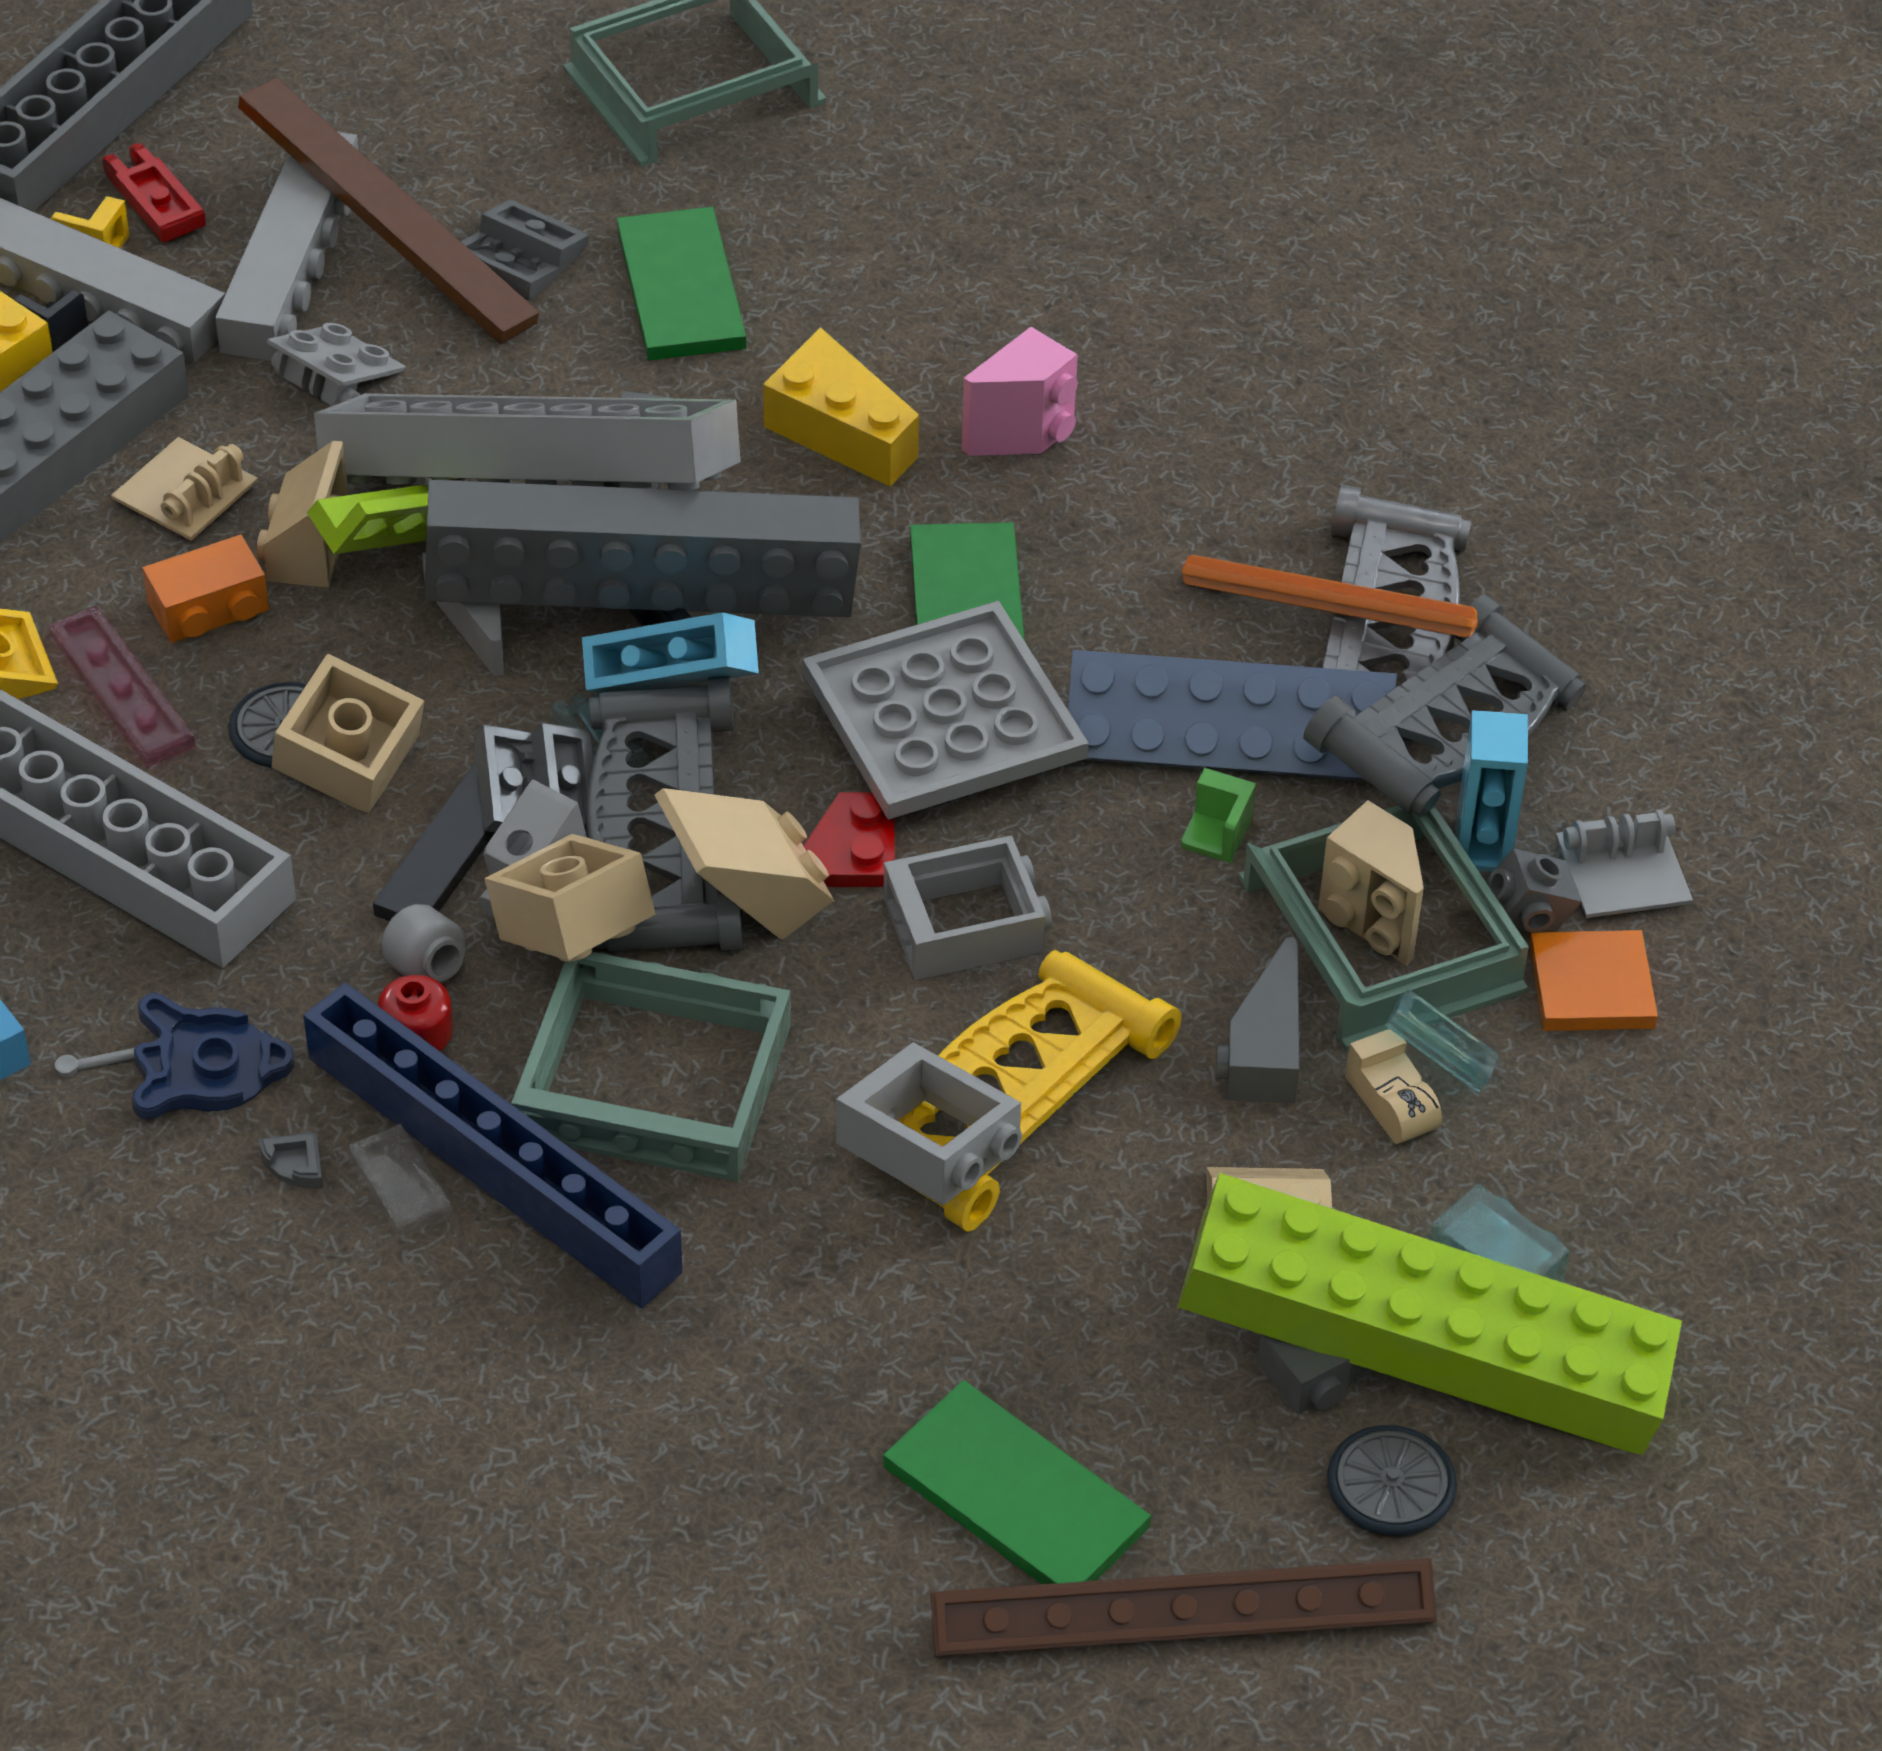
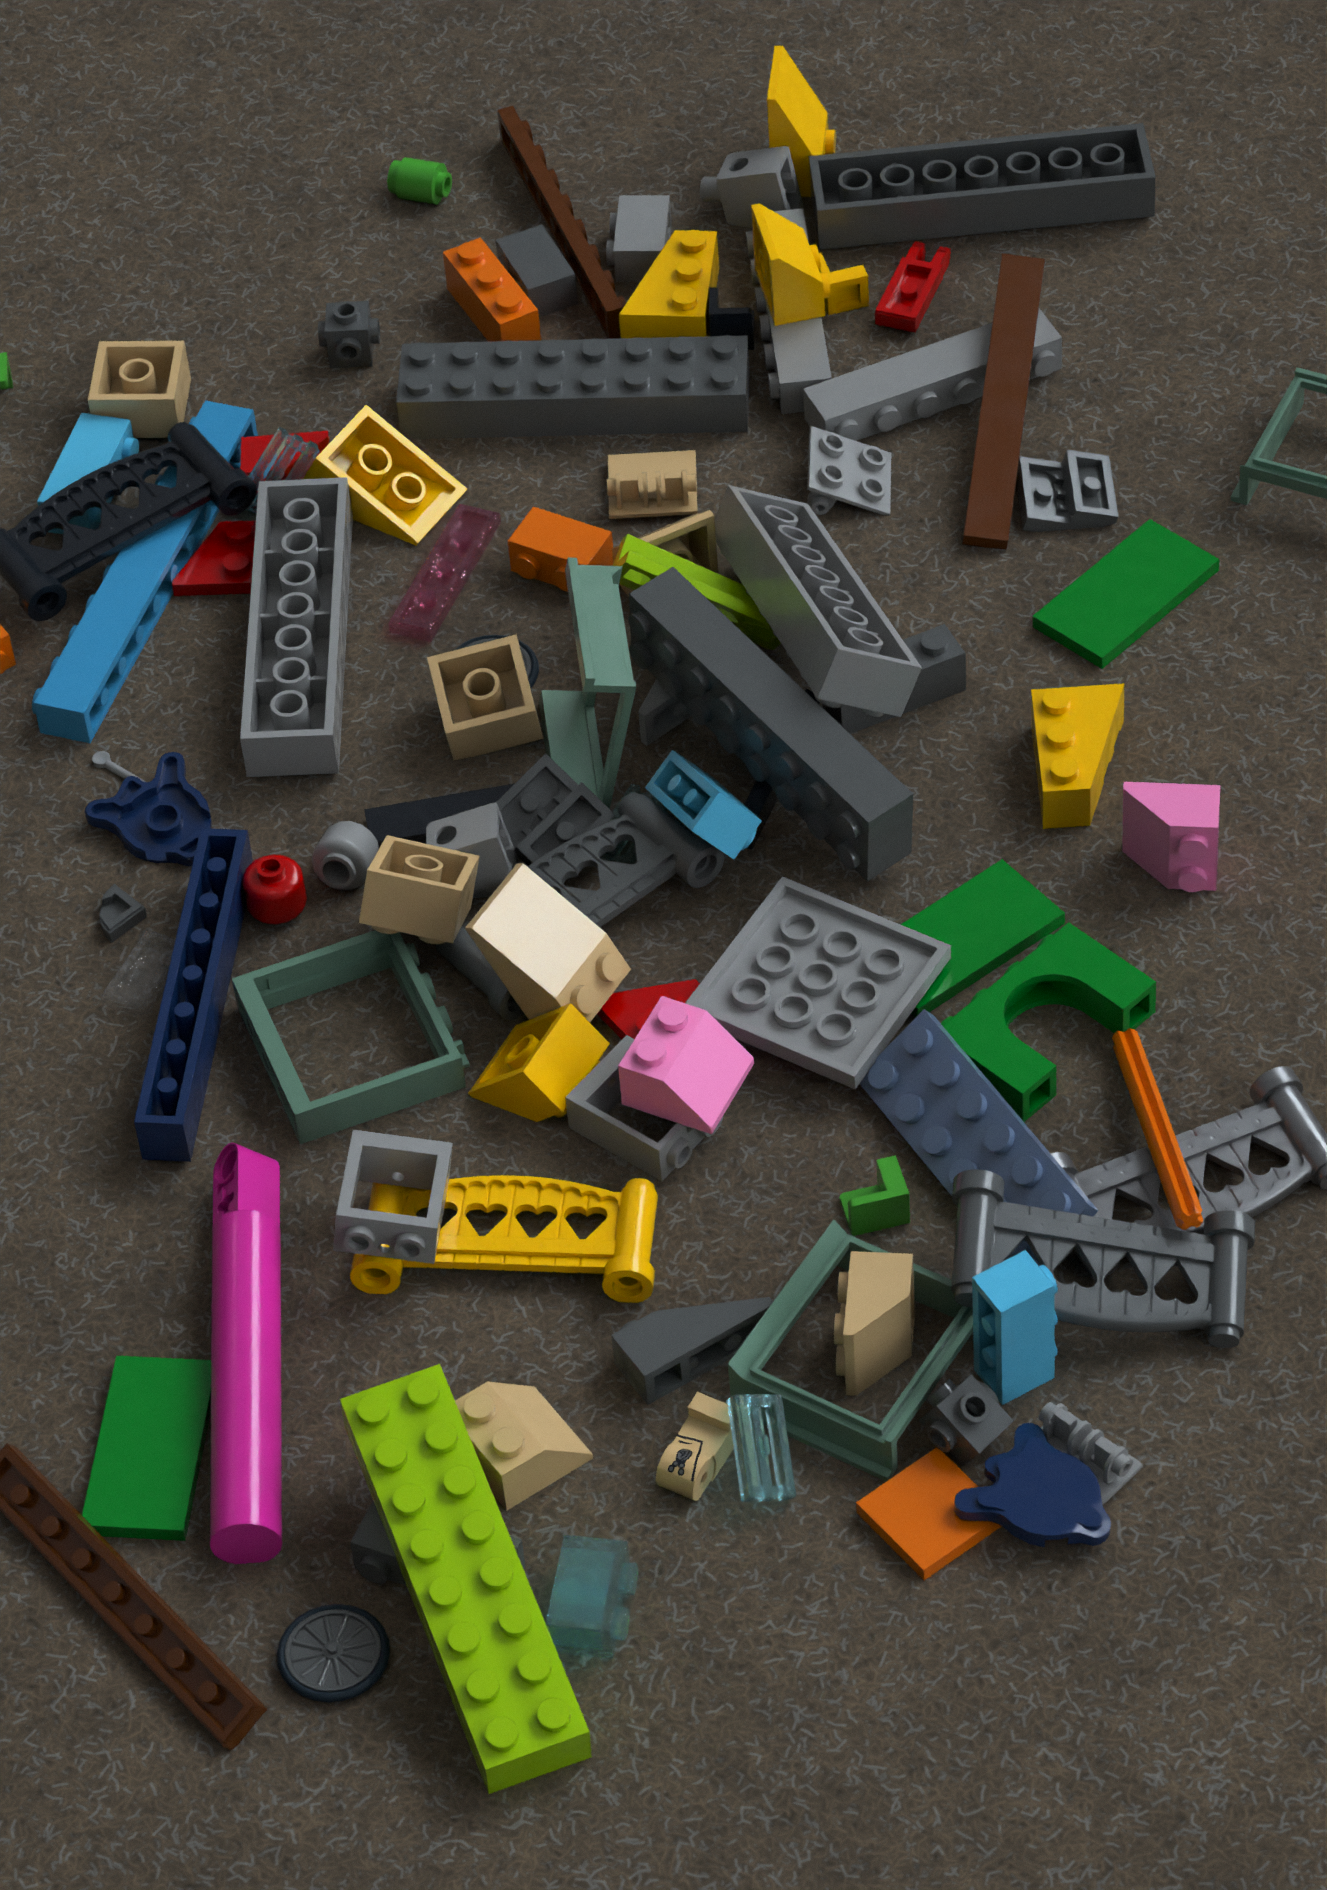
camera: 60 degrees right, 0 degrees up
(75, 235) = (787, 268): none -> yellow slope
(448, 717) = (604, 667): none -> sand green piece
(836, 950) = (541, 1064): none -> yellow slope
(978, 839) = (683, 1066): none -> bright pink slope
(992, 1349) = (246, 1358): none -> dark pink piece
(1113, 547) = (1062, 971): none -> green arch
(1645, 894) = (1038, 1494): none -> dark blue tile

